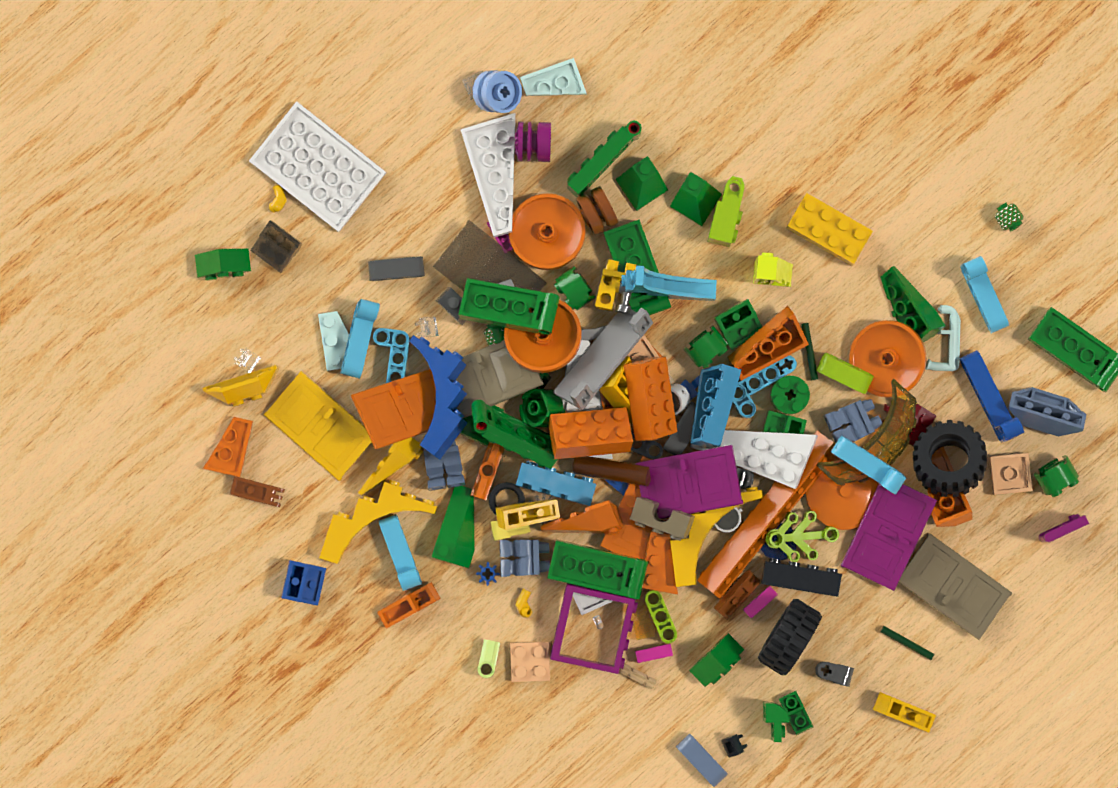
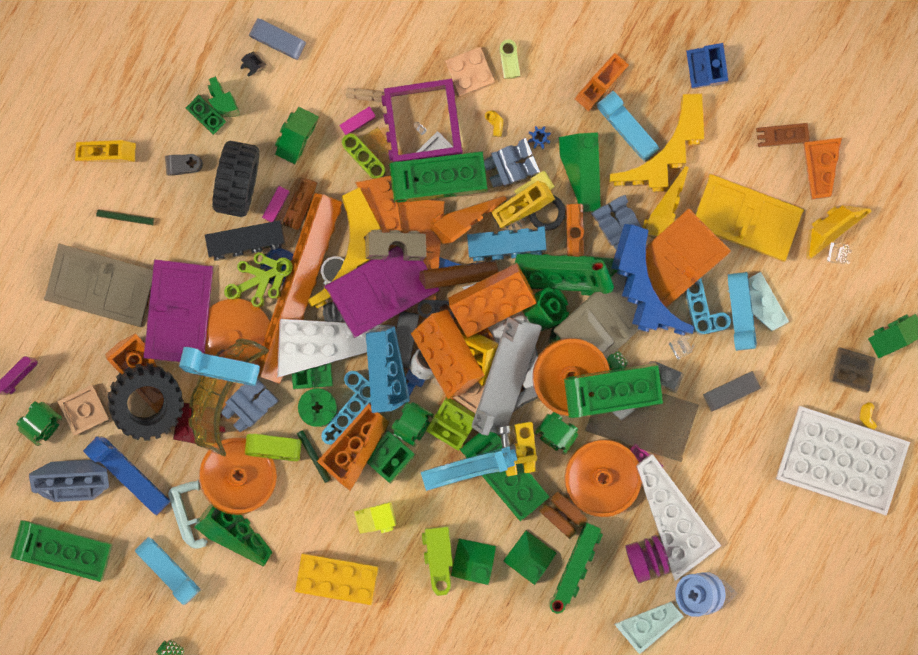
camera: 160 degrees right, 0 degrees up
(669, 333) = (452, 423): none -> lime brick

